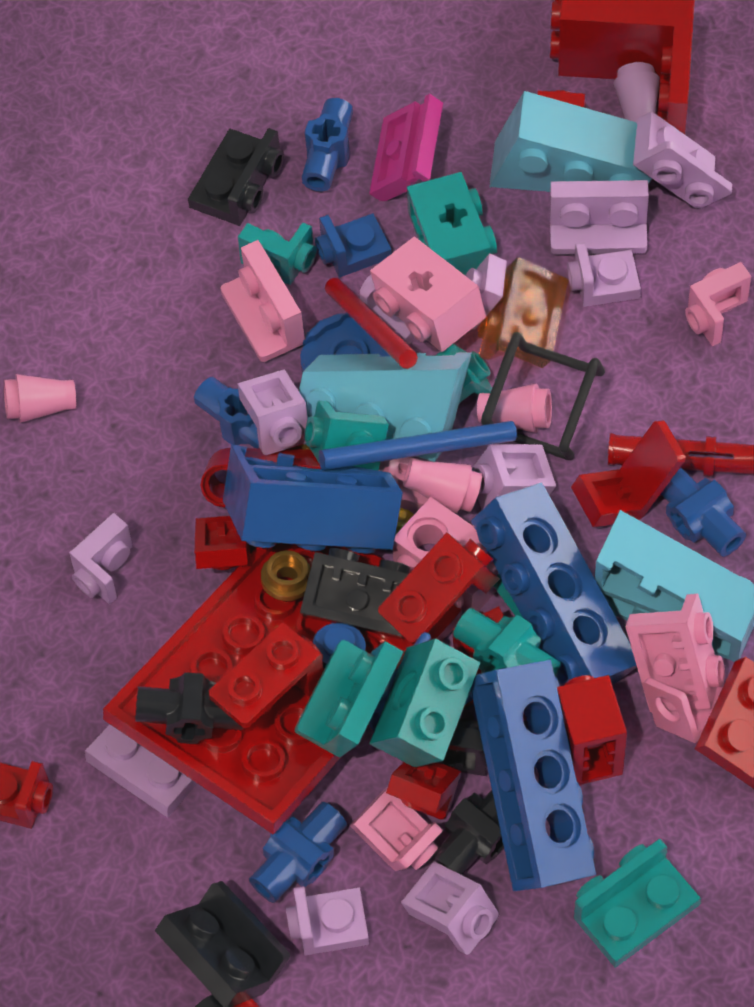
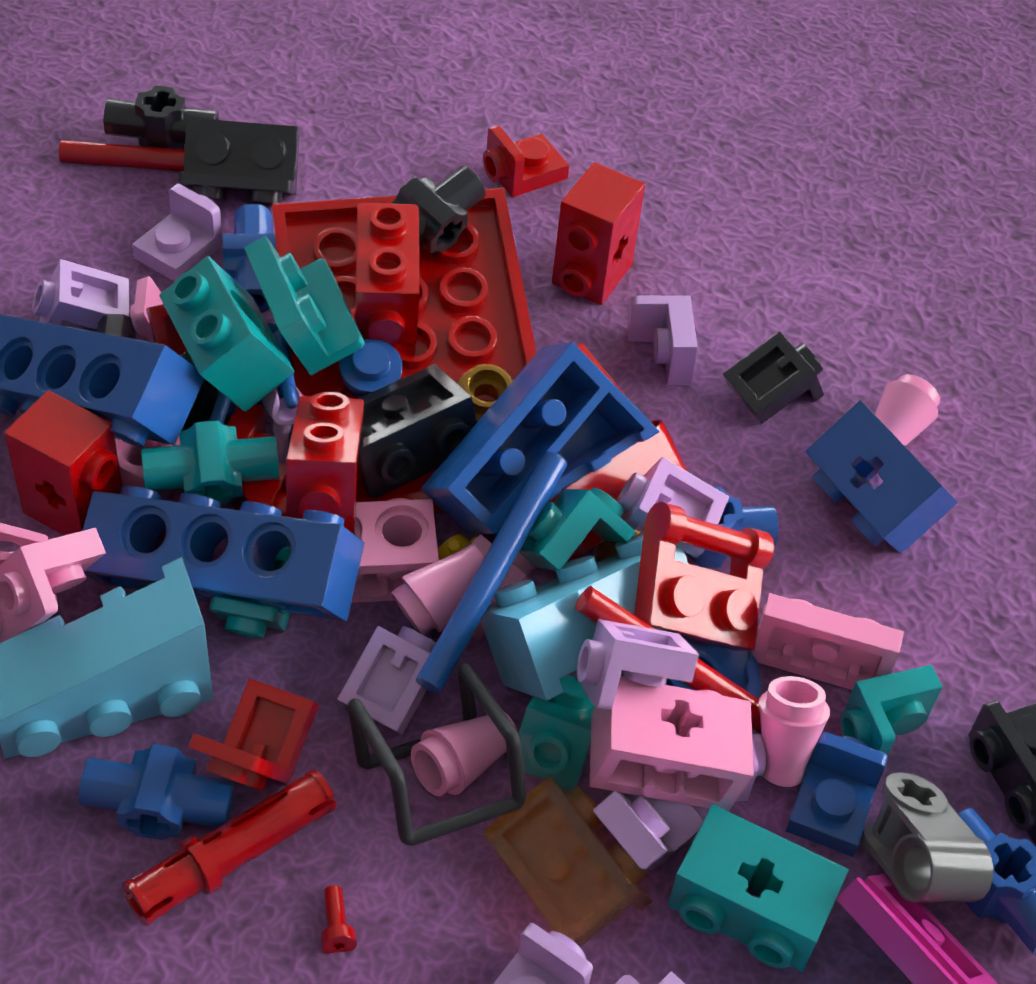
camera: 125 degrees right, 10 degrees down
(70, 646) = (597, 233): none -> red brick
(74, 478) = (775, 376): none -> black bracket
(113, 358) = (905, 501): none -> blue brick
(312, 350) = (694, 599): none -> plate
(345, 264) = (791, 725): none -> bright pink cone
(353, 170) = (927, 844): none -> dark grey piece
(416, 315) = (643, 654): none -> lavender bracket
(669, 376) = (338, 935): none -> red piece

